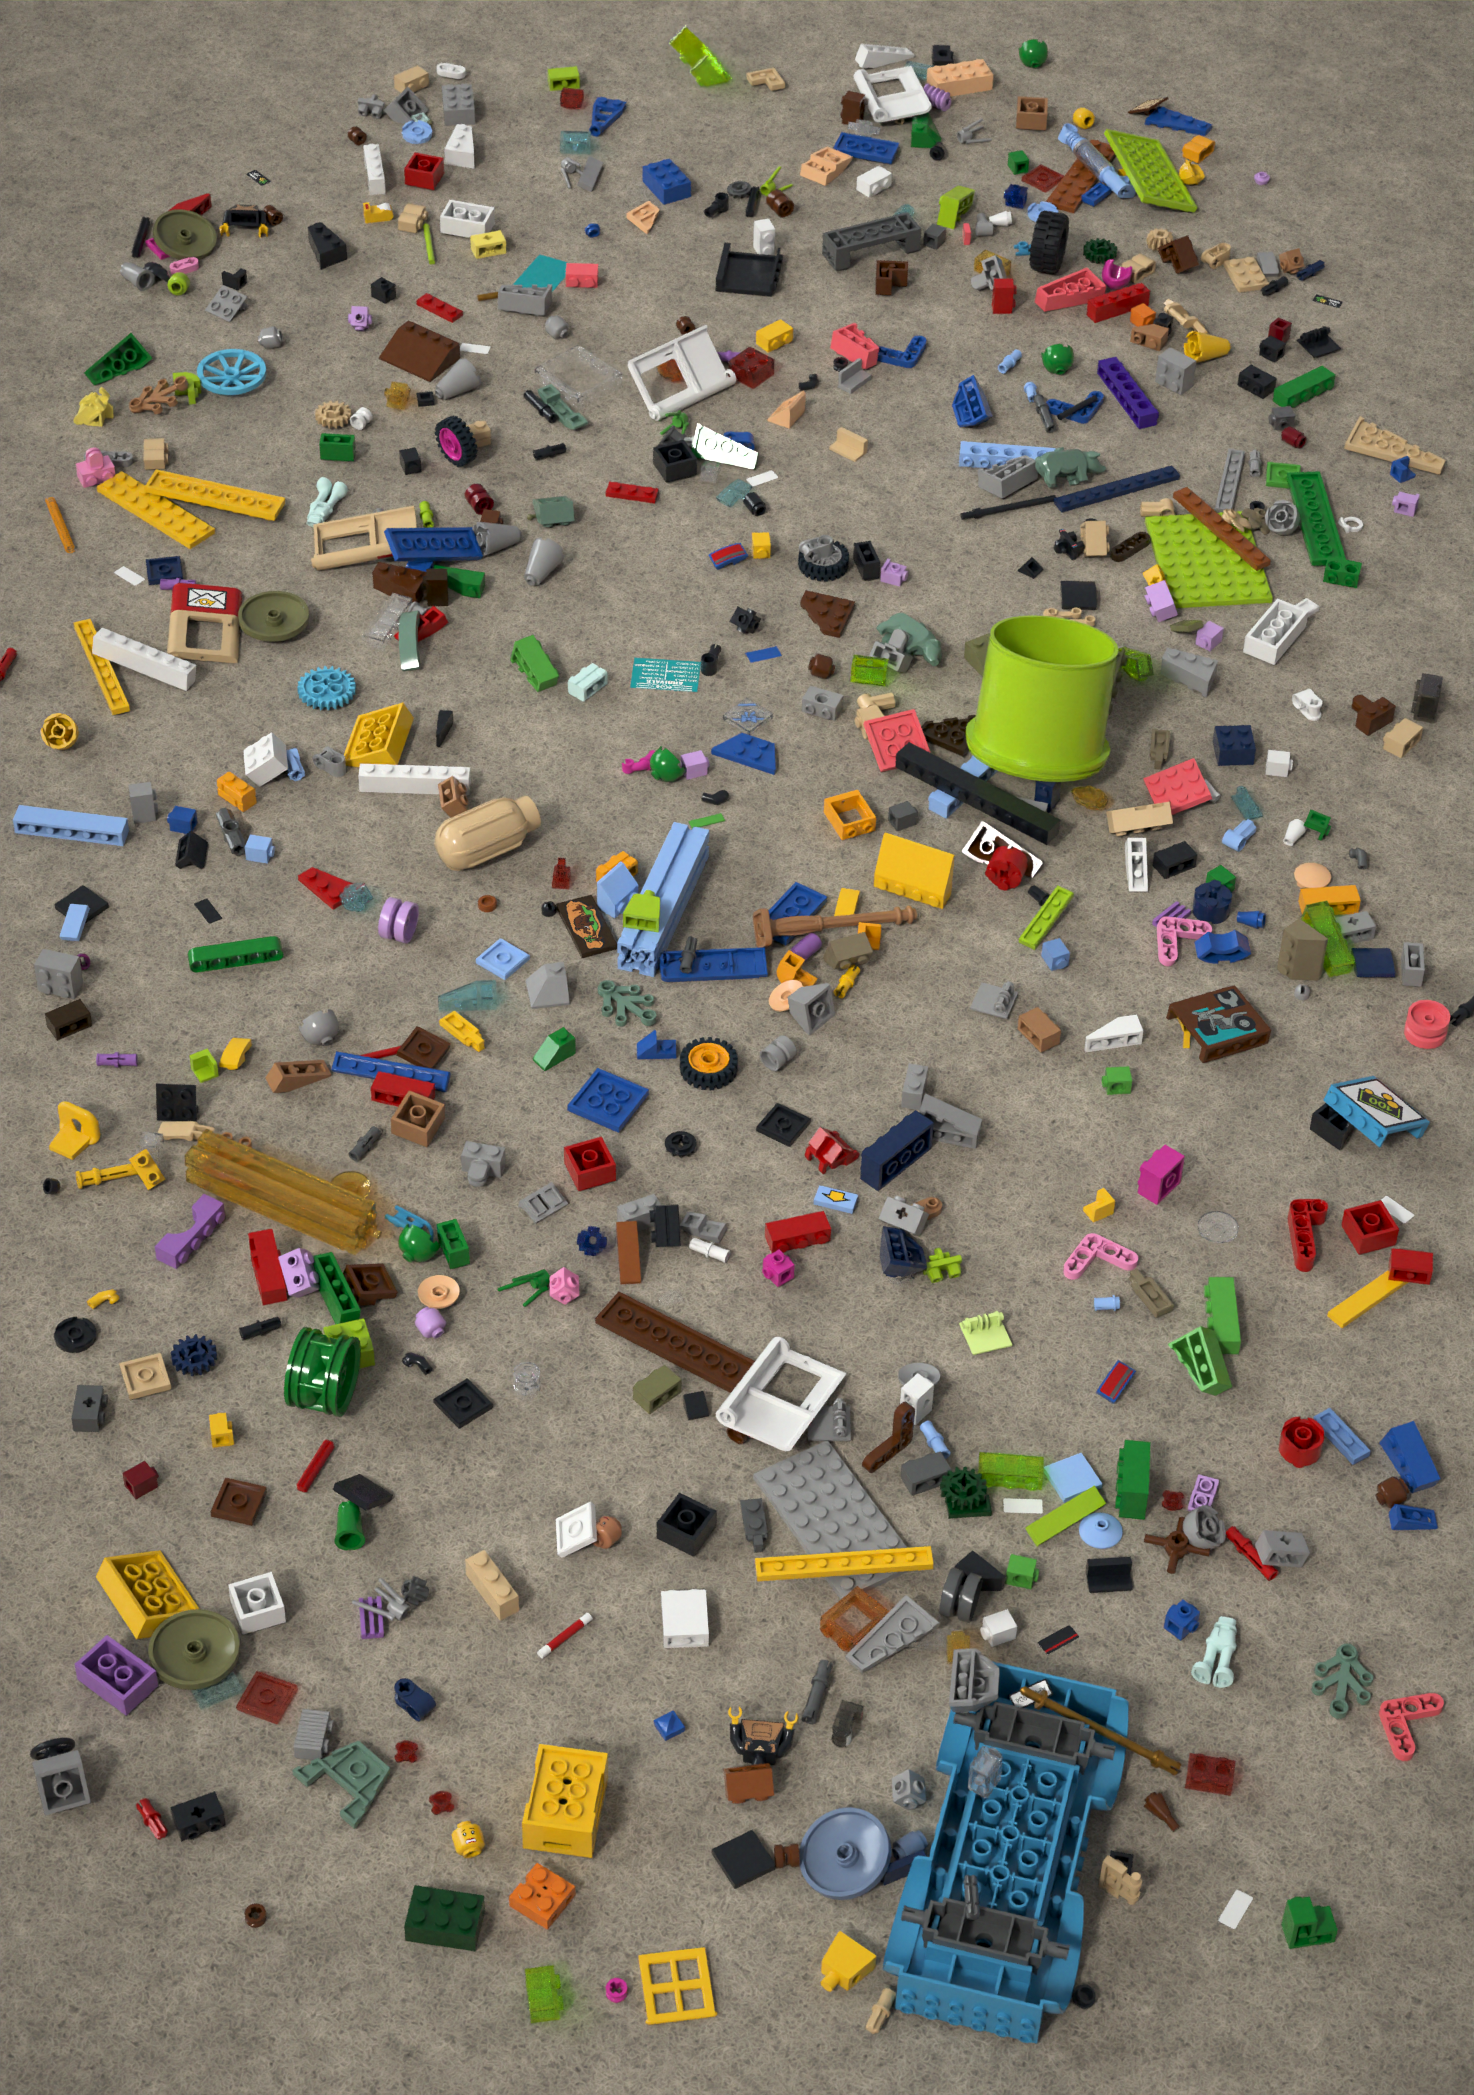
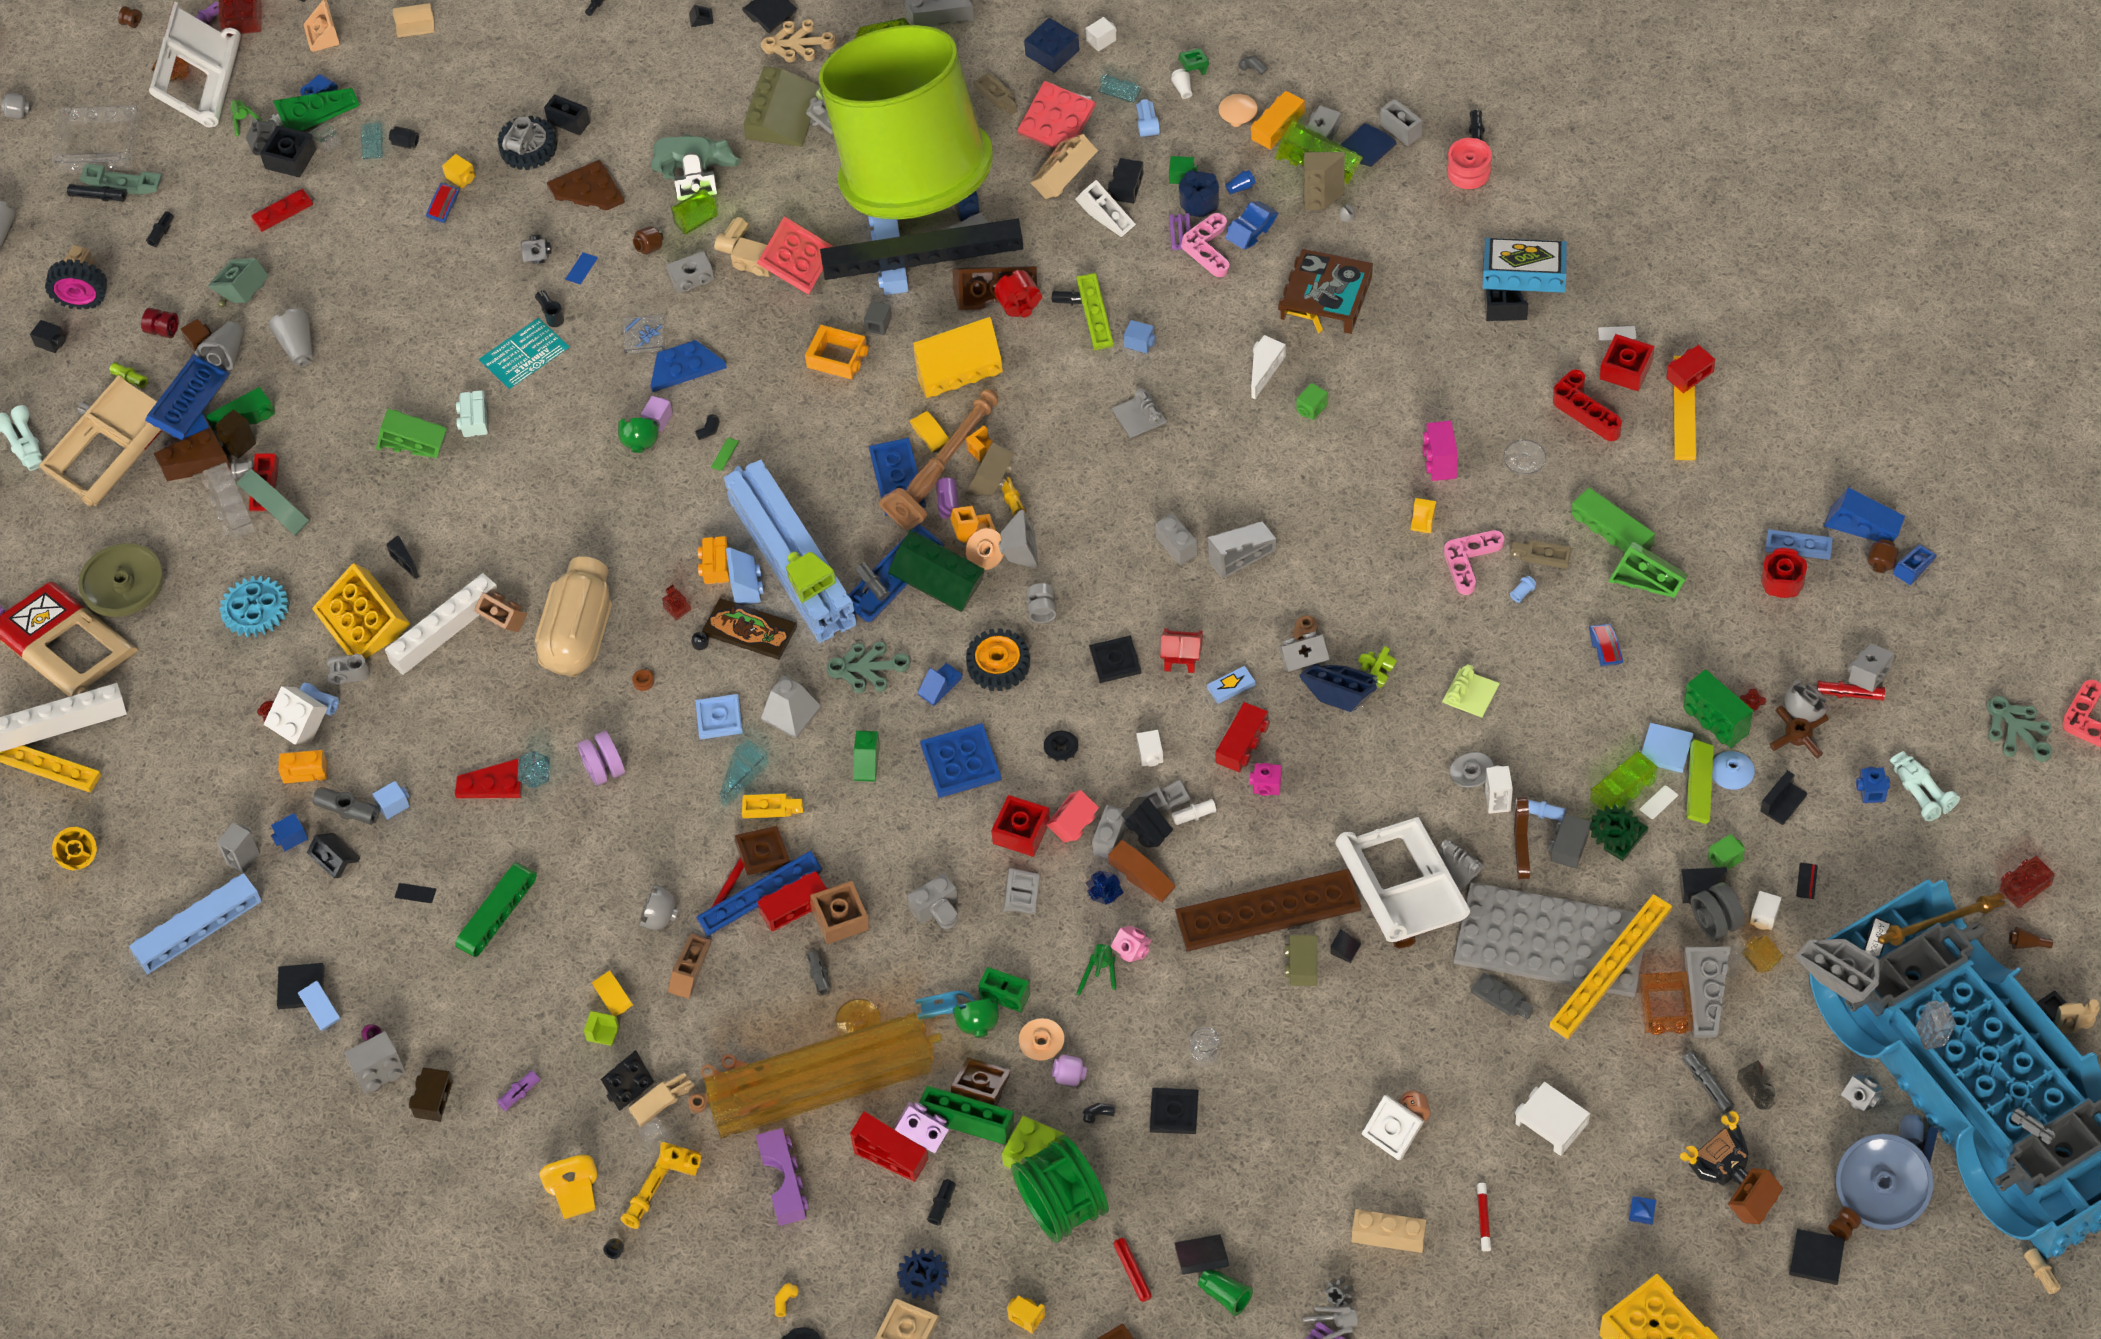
camera: 40 degrees left, 10 degrees up
(628, 1185) = (1073, 816): none -> coral brick
(643, 764) = (613, 447): dark pink piece -> none
(686, 1524) = (1464, 1045): black brick -> none
(731, 1190) = (1149, 748): none -> white brick
(737, 982) = (936, 571): none -> dark green slope
(762, 478) = (375, 108): white sticker -> none
(846, 1963) = (1979, 1261): yellow torso -> none
(893, 573) = (600, 108): lavender brick -> none
(896, 1150) = (1232, 603): dark blue brick -> none
(948, 734) = (826, 211): dark brown plate -> none
(1039, 1029) = (1207, 410): medium nougat brick -> none
(1090, 797) = (1001, 180): clear yellow arm -> none
(1203, 1492) = (1766, 678): lavender slope -> none

